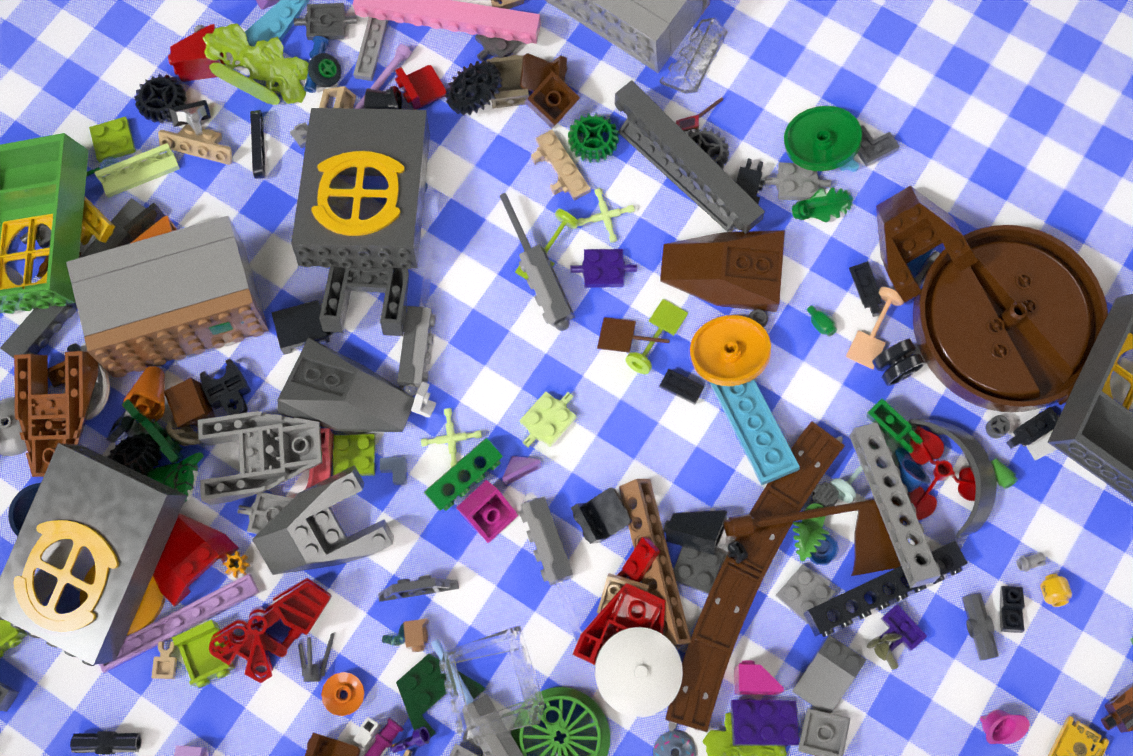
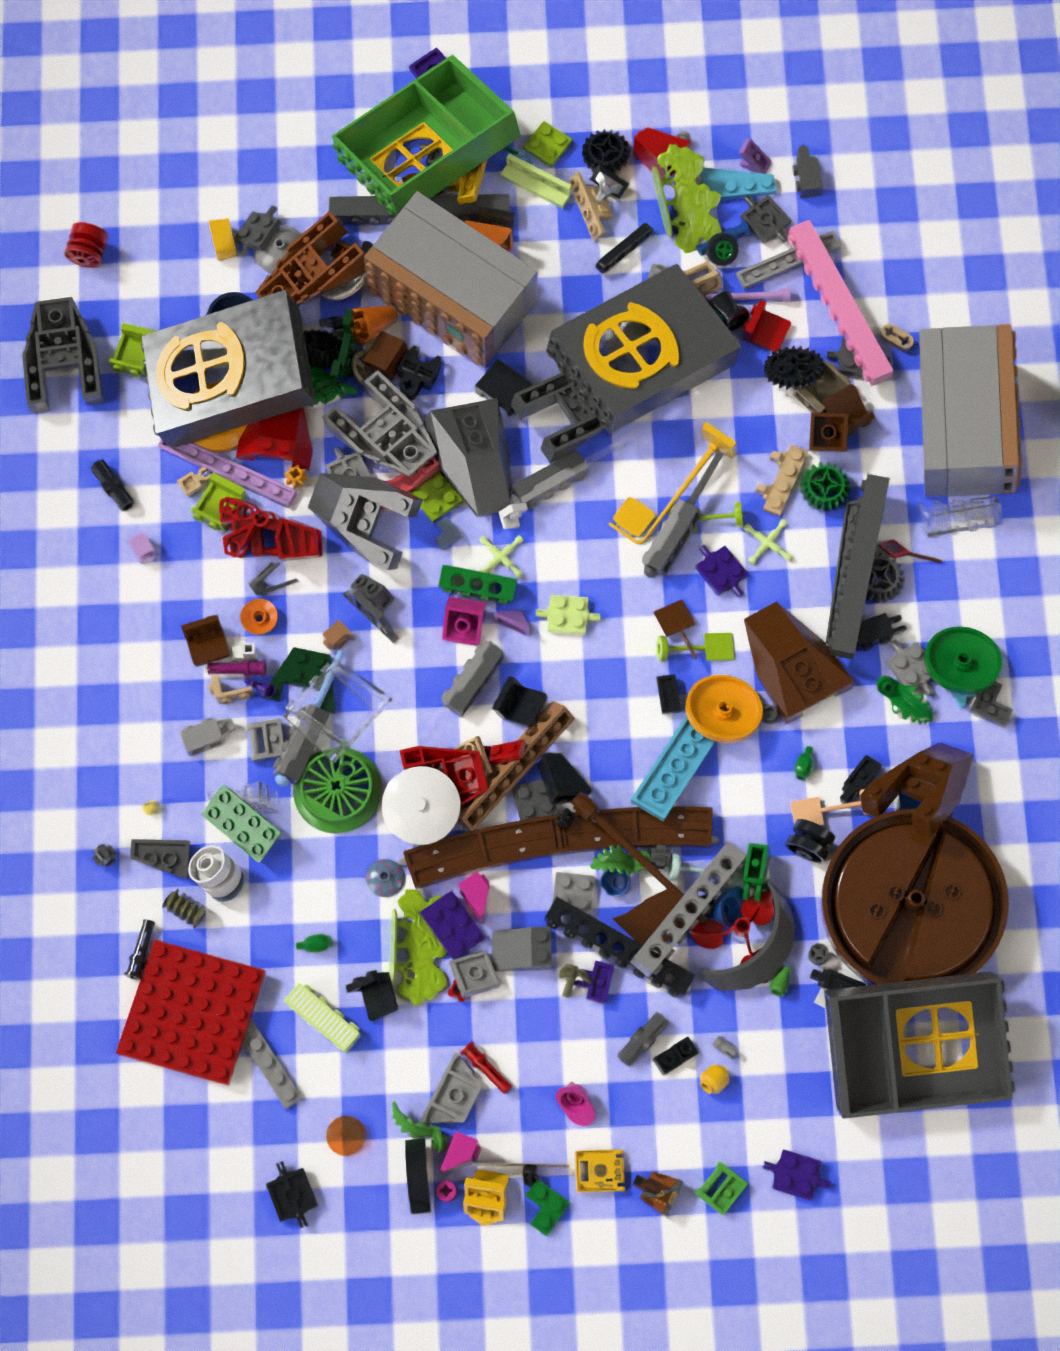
camera: 55 degrees right, 0 degrees up
(395, 640) = (321, 623): animal -> none
(401, 569) = (376, 591): none -> dark grey bracket
(503, 301) = (636, 517): none -> yellow piece

